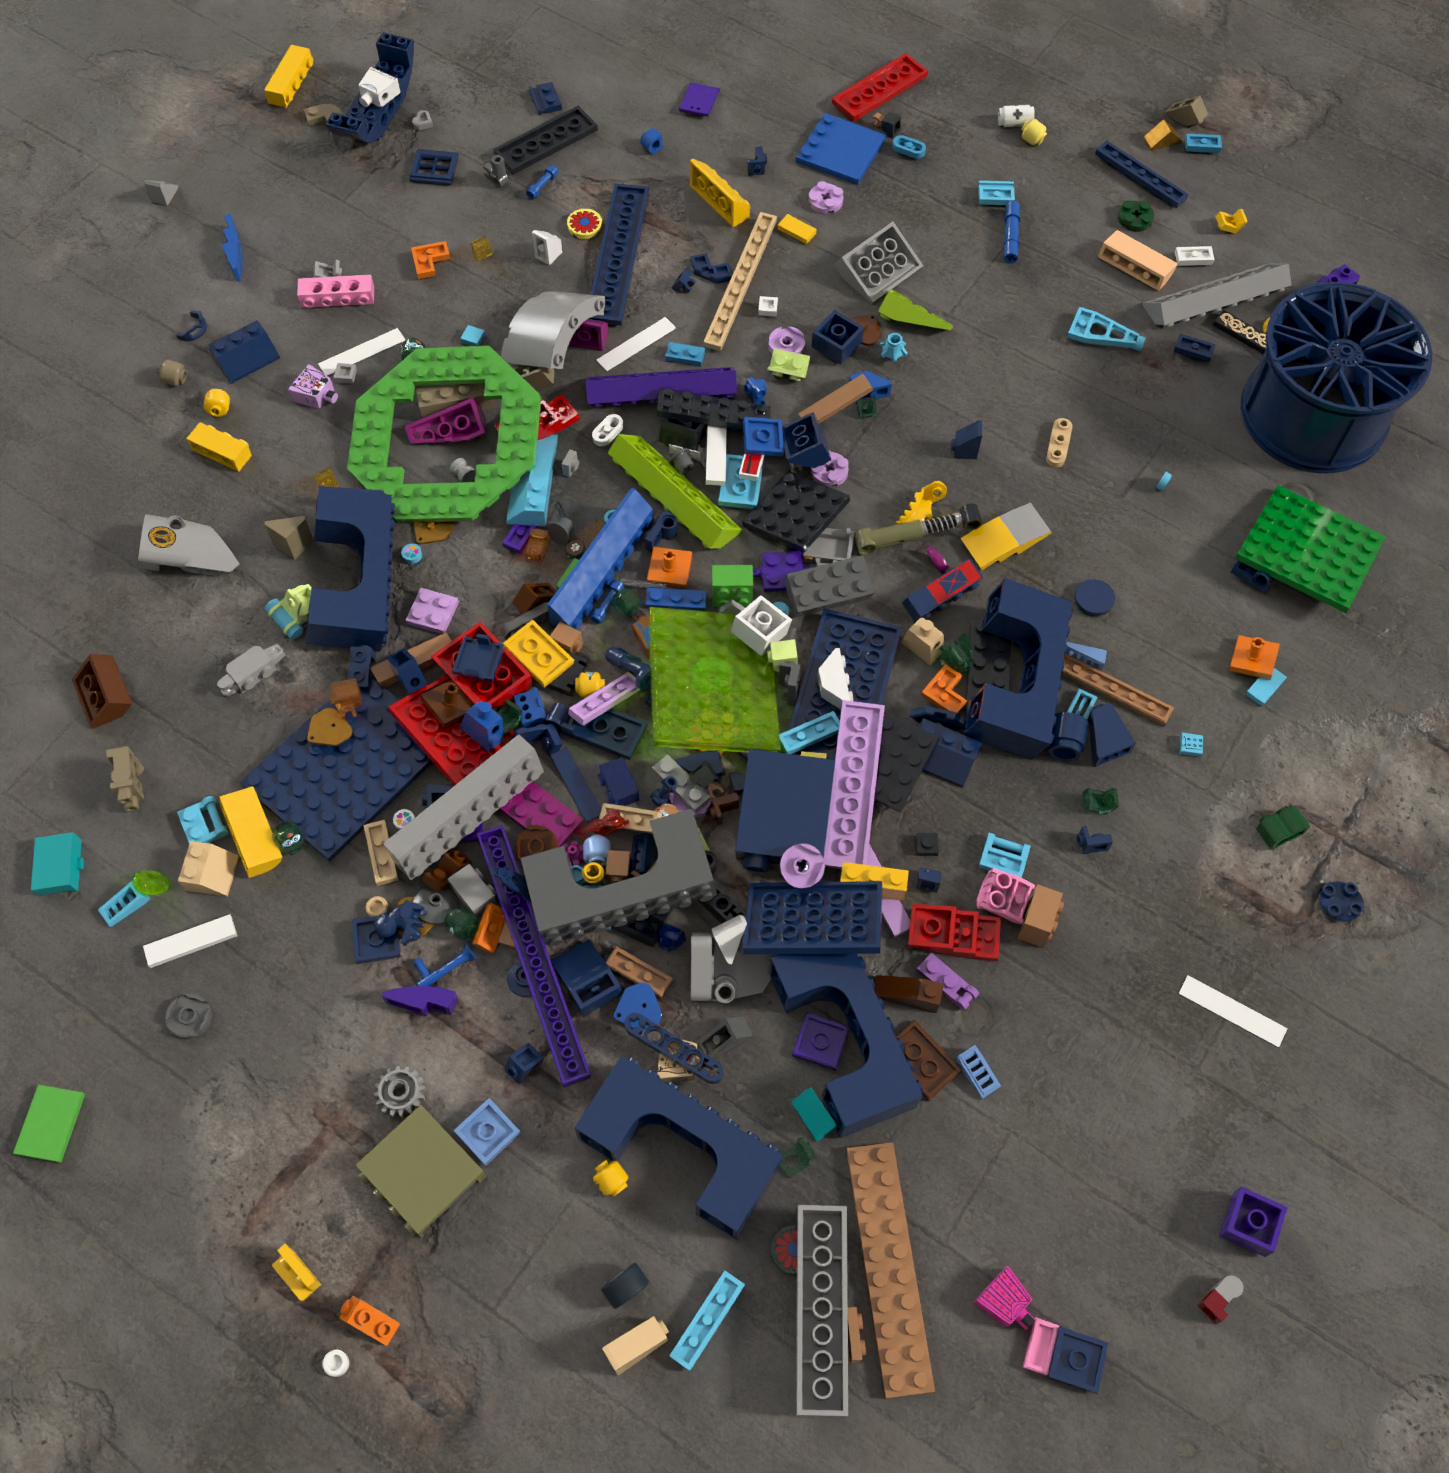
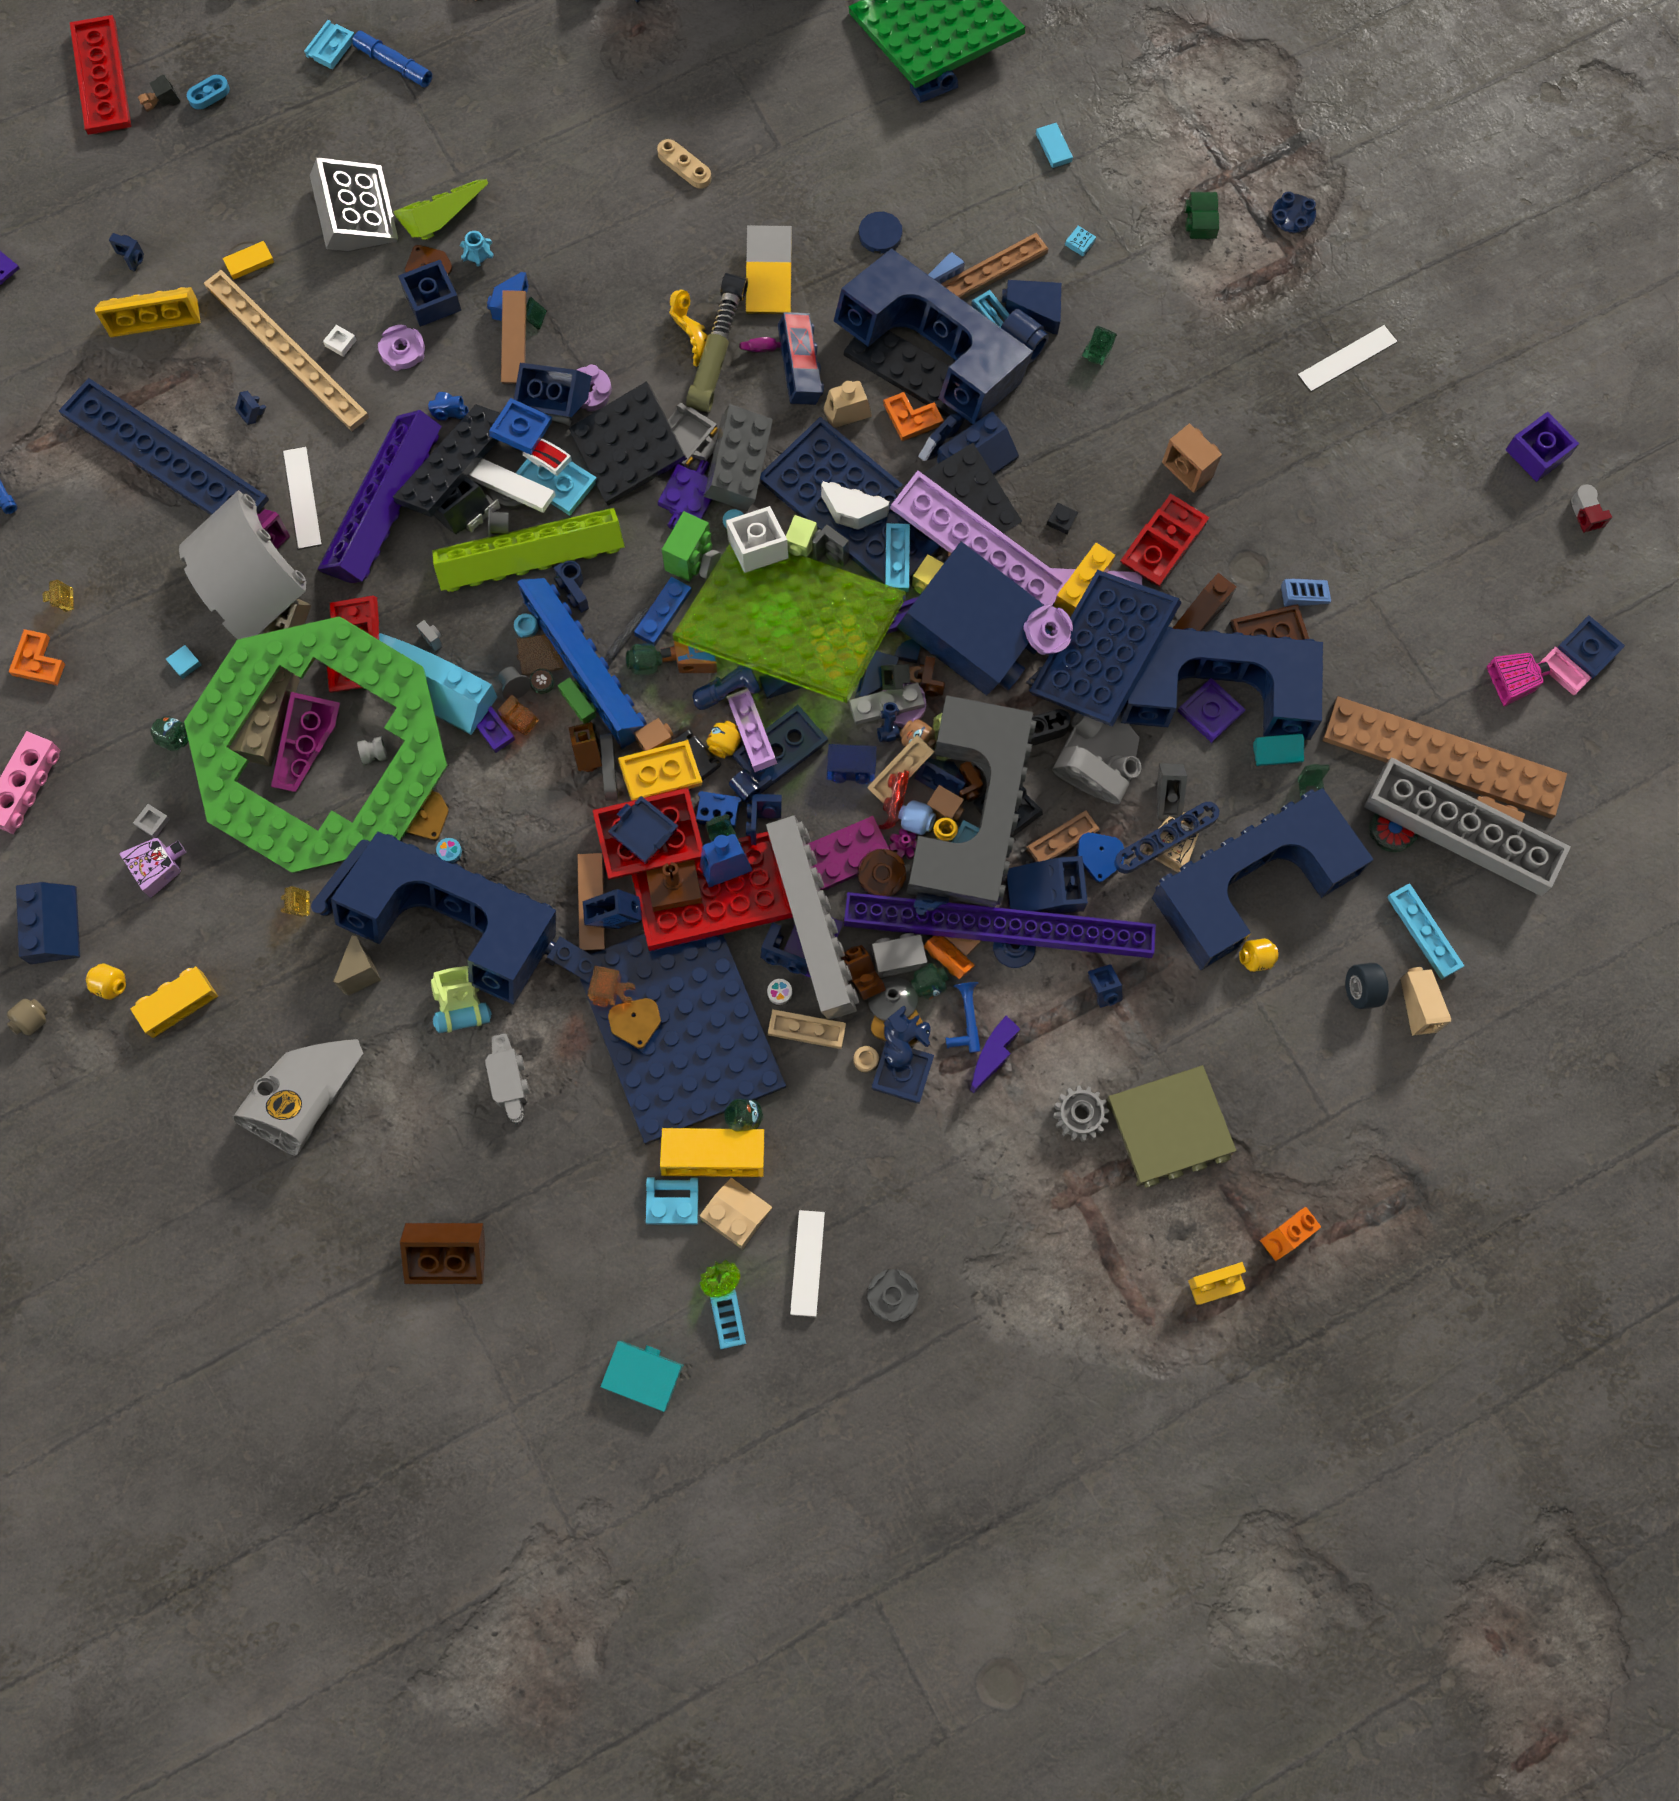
camera: 65 degrees left, 10 degrees up
(49, 1124) = (944, 1479): bright green tile -> none
(124, 777) = (583, 1258): dark tan hips -> none
(335, 1363) = (1316, 1280): white tile -> none
(362, 351) = (126, 792): white sticker -> none
(432, 611) = (536, 859): lavender plate -> none
(487, 1131) = (1159, 1048): medium blue plate -> none
(546, 246) = (108, 524): white slope -> none
(576, 784) = (828, 805): dark blue sticker -> none
(584, 223) = (93, 471): tile -> none
(598, 614) = (638, 693): blue bar -> none
(606, 431) = (407, 580): white plate -> none
(652, 140) = (18, 342): blue plate -> none
(670, 567) = (619, 598): orange tile -> none
(670, 937) = (1044, 791): clear blue cone -> none
(685, 354) = (350, 454): dark azure plate -> none
(716, 274) = (256, 372): dark blue tile -> none
(729, 936) = (1081, 731): white slope -> none
(789, 363) = (433, 358): yellowish green bracket -> none
(825, 190) = (222, 199): lavender plate -> none
(841, 148) = (161, 159): blue plate -> none
(928, 880) = (1103, 533): dark blue bracket -> none
(937, 971) = (1200, 574): medium lavender plate -> none
(957, 654) = (882, 383): clear green brick -> none
(967, 441) = (639, 240): dark blue slope -> none
(1003, 860) = (1115, 463): medium azure plate -> none
(1004, 895) = (1150, 479): bright pink slope -> none
(1081, 331) = (558, 65): medium azure plate -> none
(1095, 843) = (1134, 380): dark blue bracket -> none
(1163, 482) = (787, 98): medium azure tile -> none
(1254, 657) = (1022, 136): orange tile -> none

